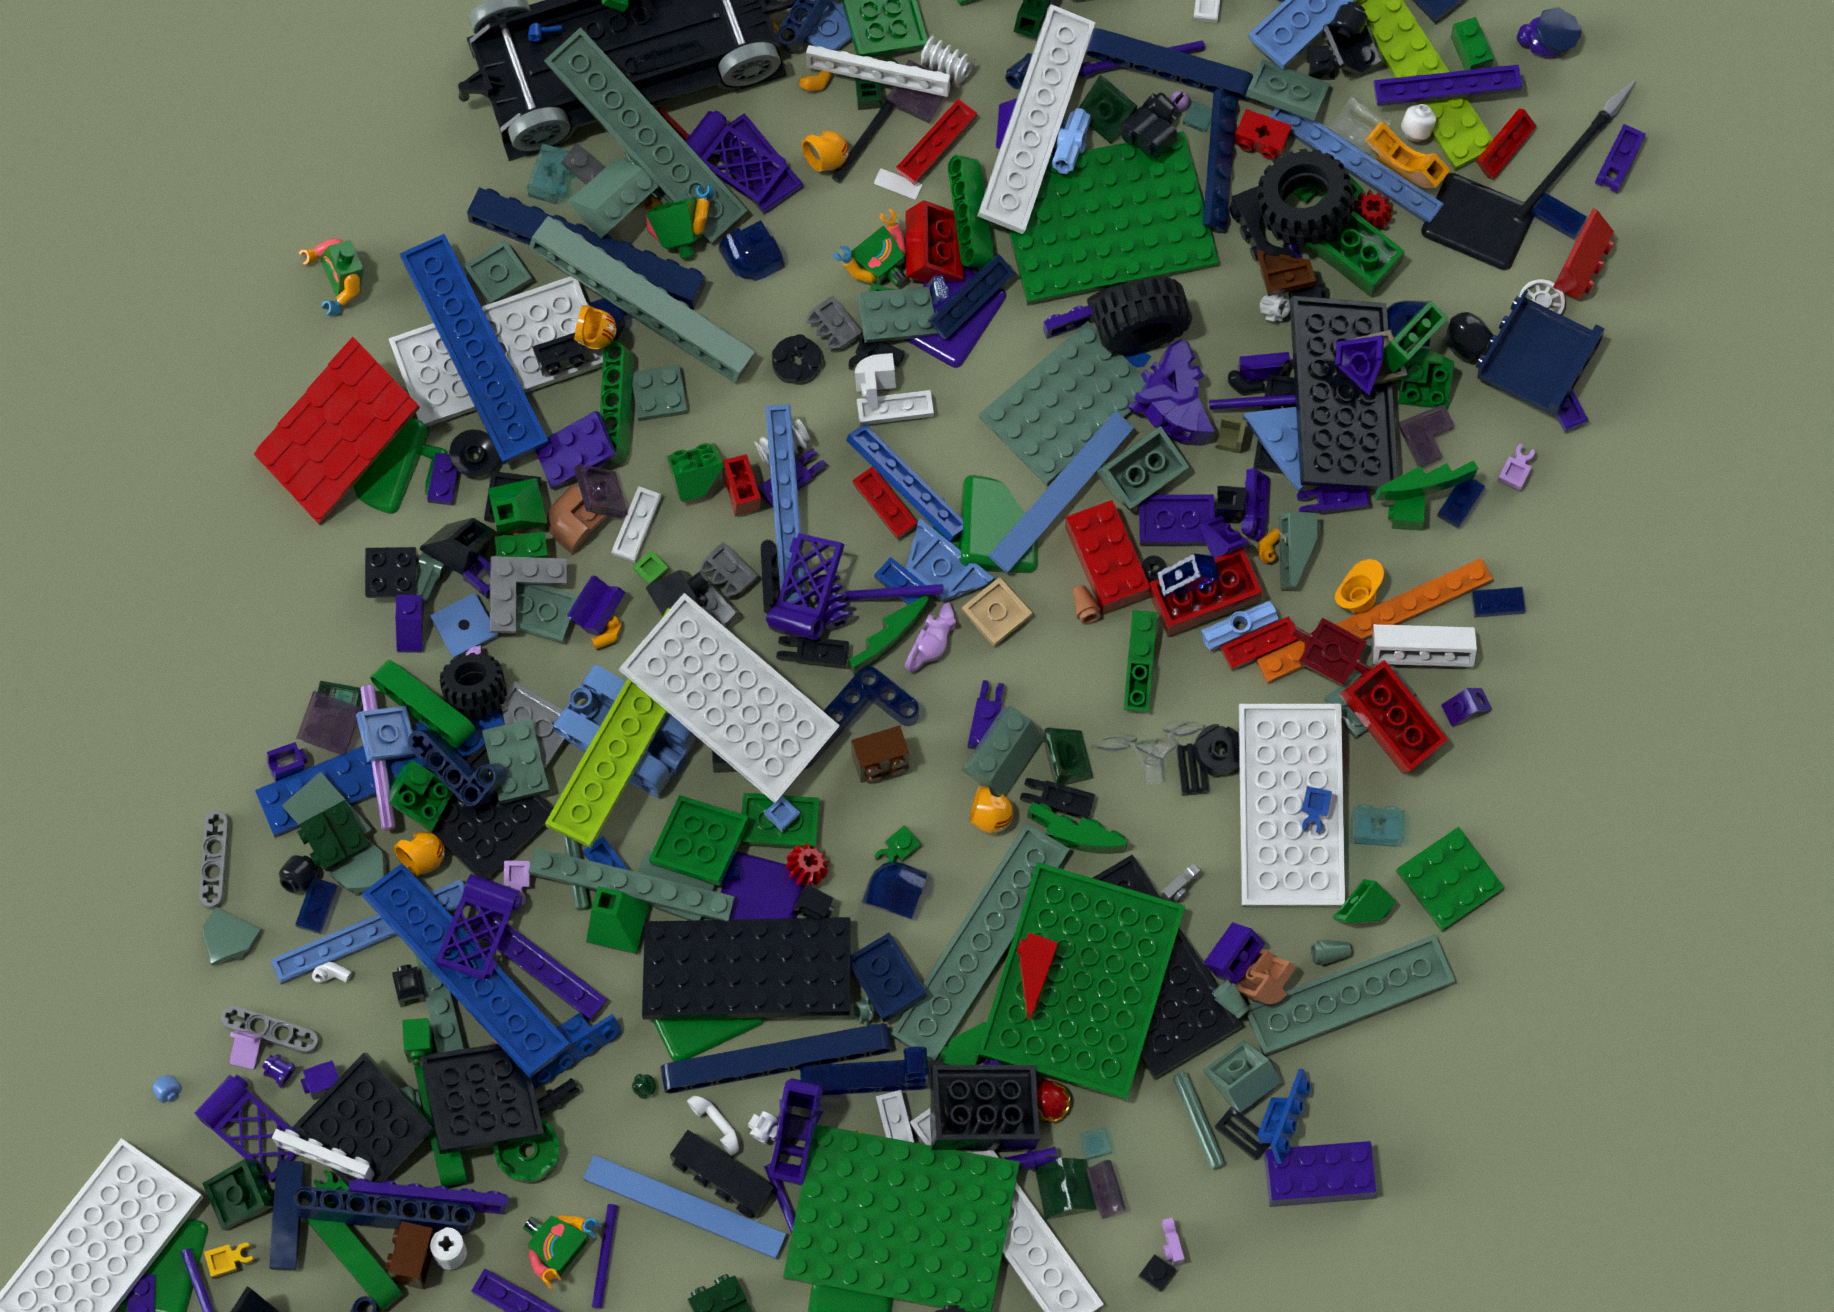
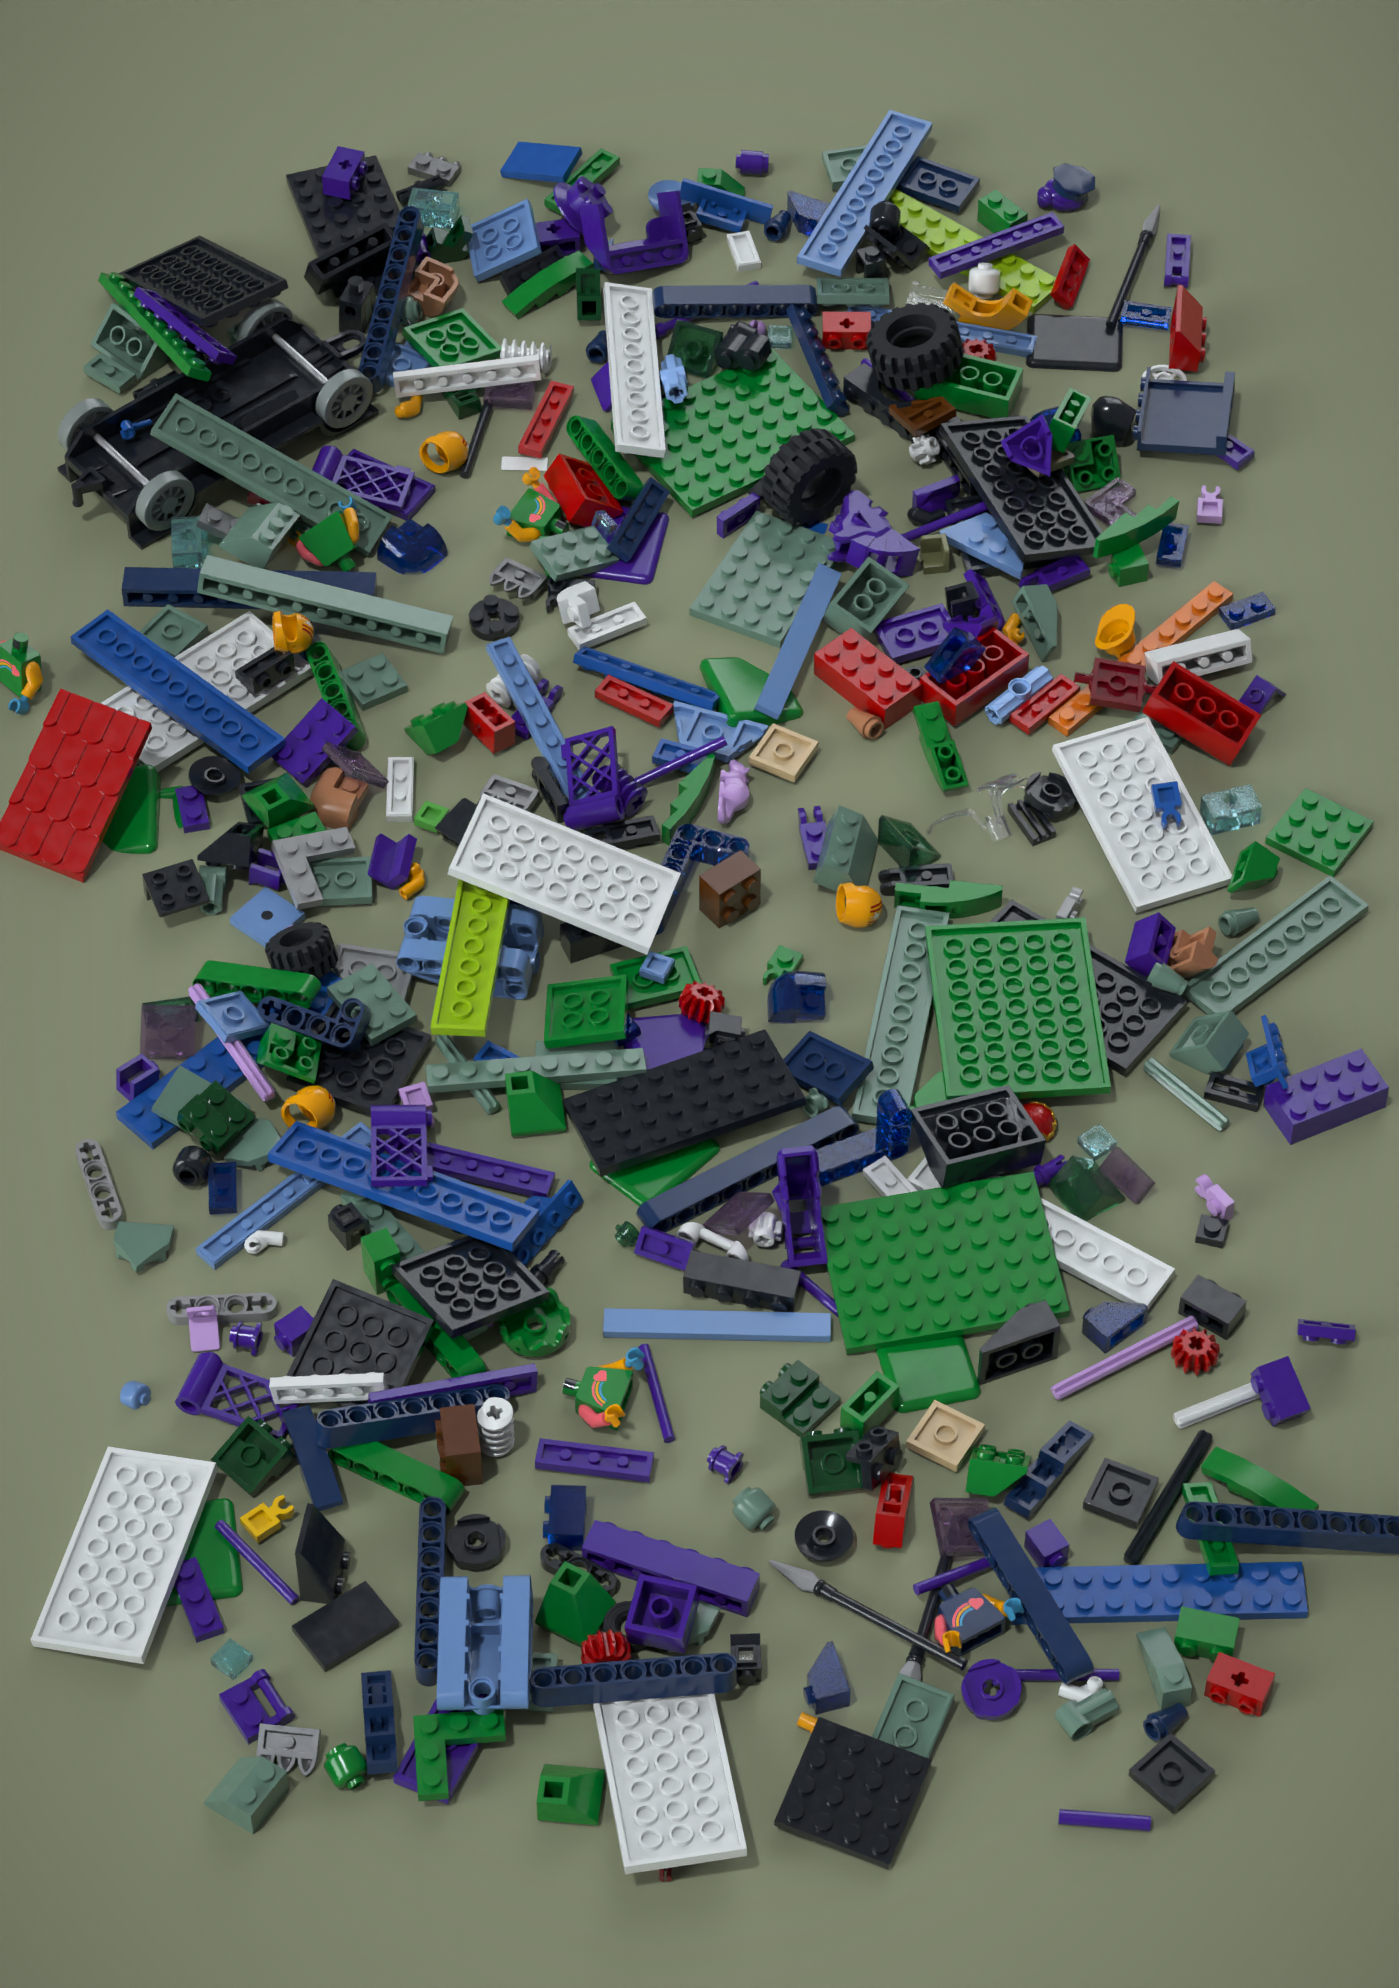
camera: 20 degrees left, 20 degrees down
(409, 623) = (212, 928): dark purple slope -> none
(669, 1112) = (663, 1247): none -> dark purple plate
(746, 1103) = (739, 1212): none -> clear purple plate
(1035, 963) = (967, 1005): red slope -> none

